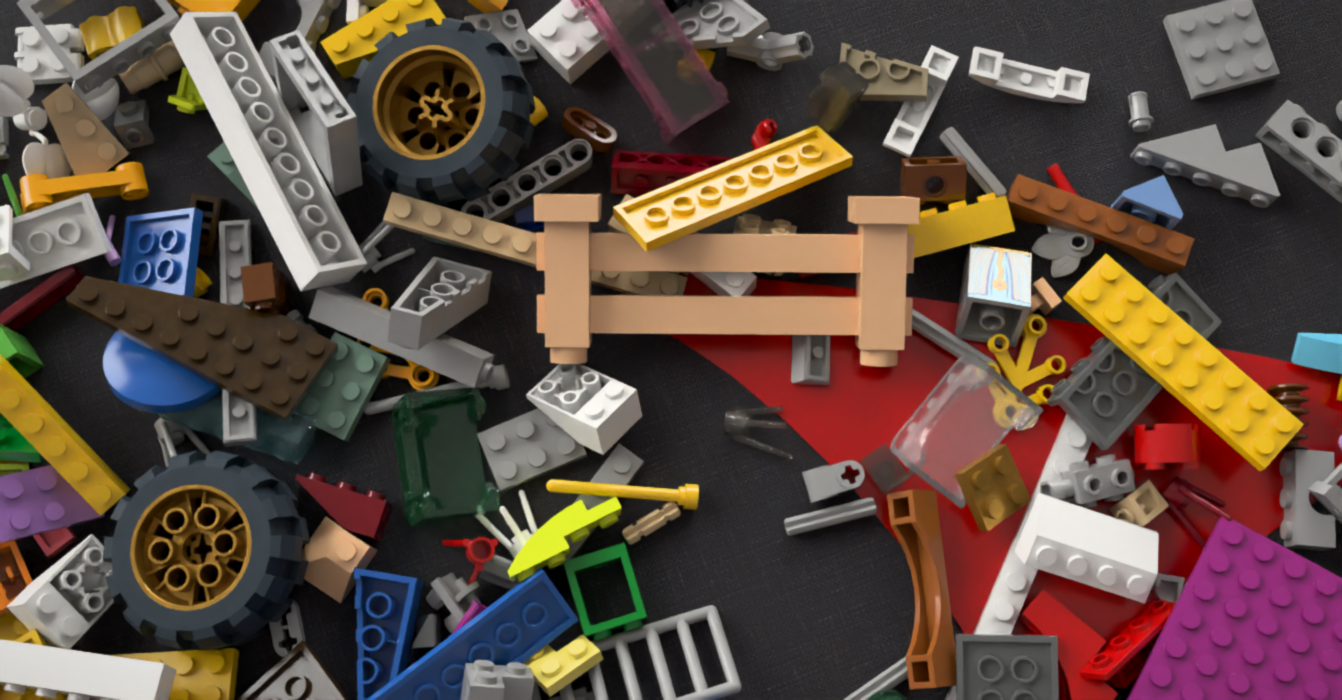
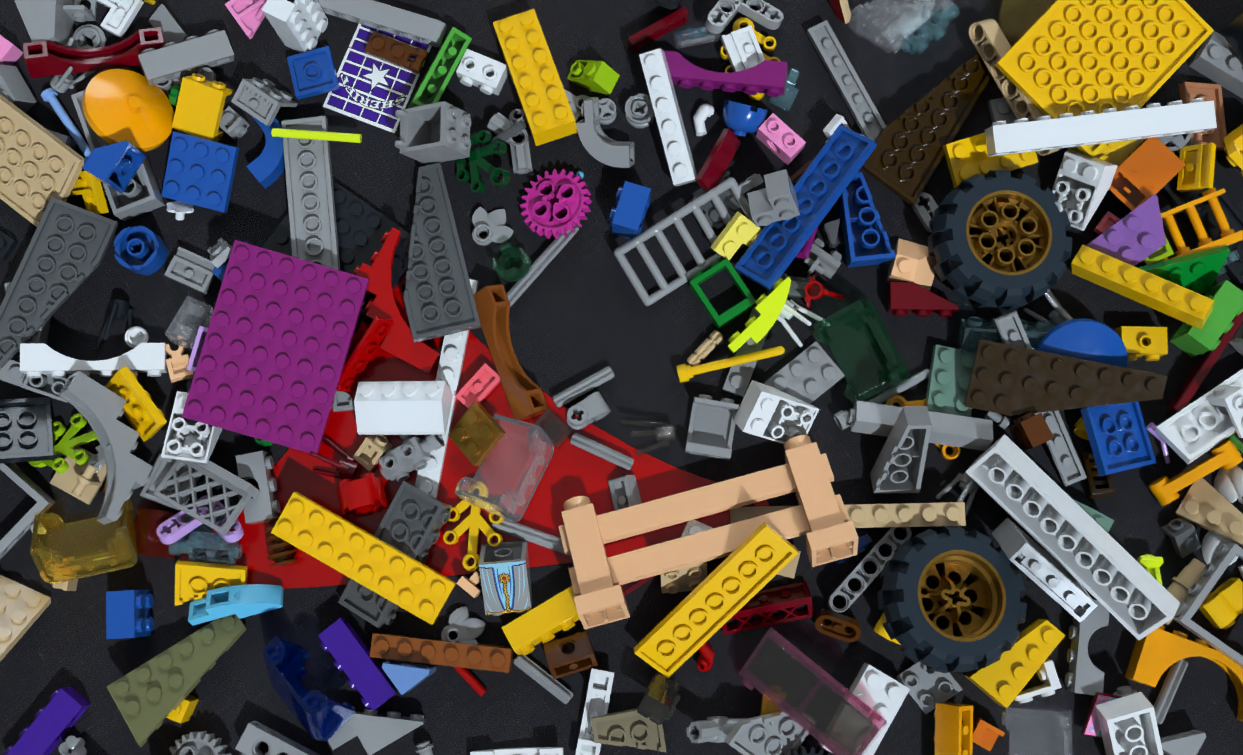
camera: 165 degrees right, 5 degrees up
(76, 369) = (1144, 341): none -> yellow brick
(674, 413) = (711, 427): none -> light grey panel
(827, 423) = (602, 451): none -> light grey axle
(975, 554) = (478, 386): none -> coral plate
(1215, 249) = (355, 660): none -> dark purple brick
(1308, 253) = (312, 709): none -> clear blue windscreen

